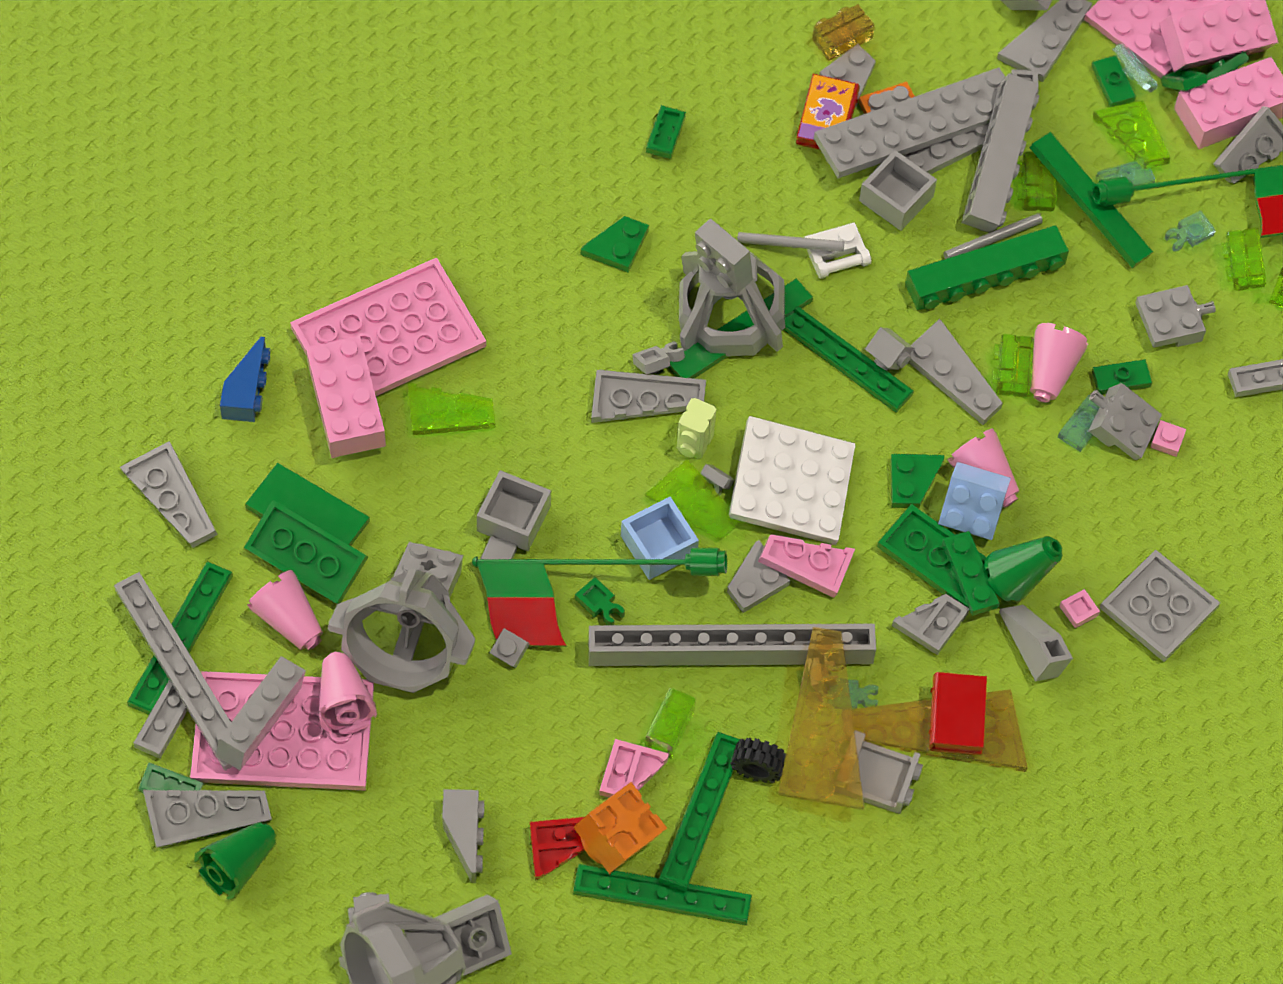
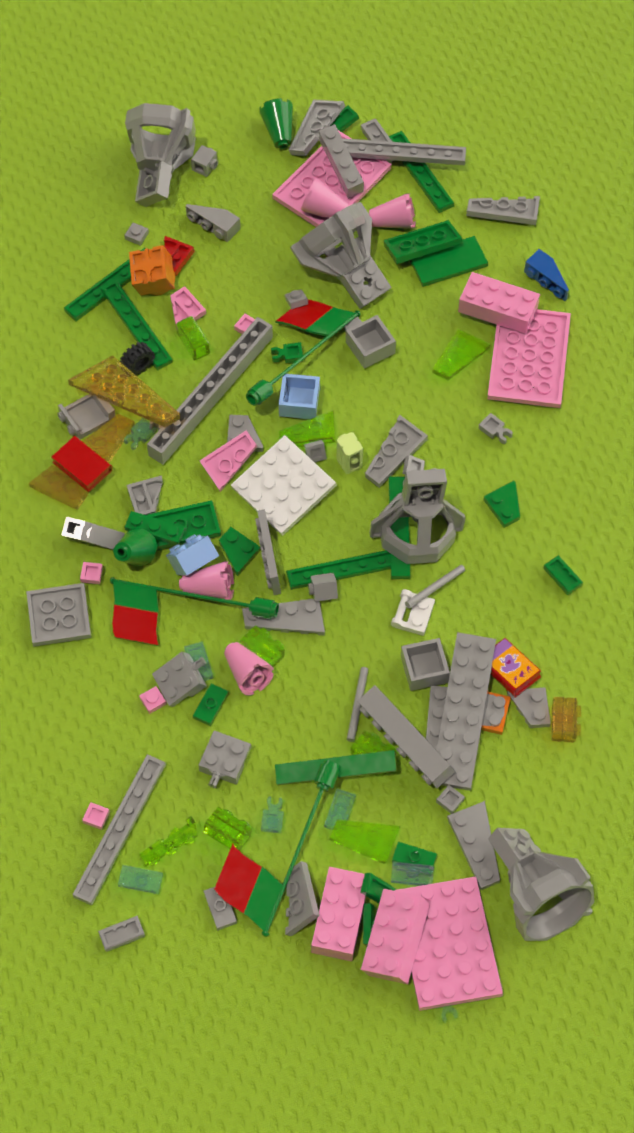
camera: 130 degrees right, 0 degrees up
(524, 311) = (495, 427): none -> light grey plate
(557, 921) = (136, 233): none -> light grey plate
(597, 677) = (243, 323): none -> bright pink plate
(903, 423) = (267, 552): none -> light grey plate
(986, 268) = (337, 680): green brick -> none
(1084, 524) = (138, 610): none -> flag

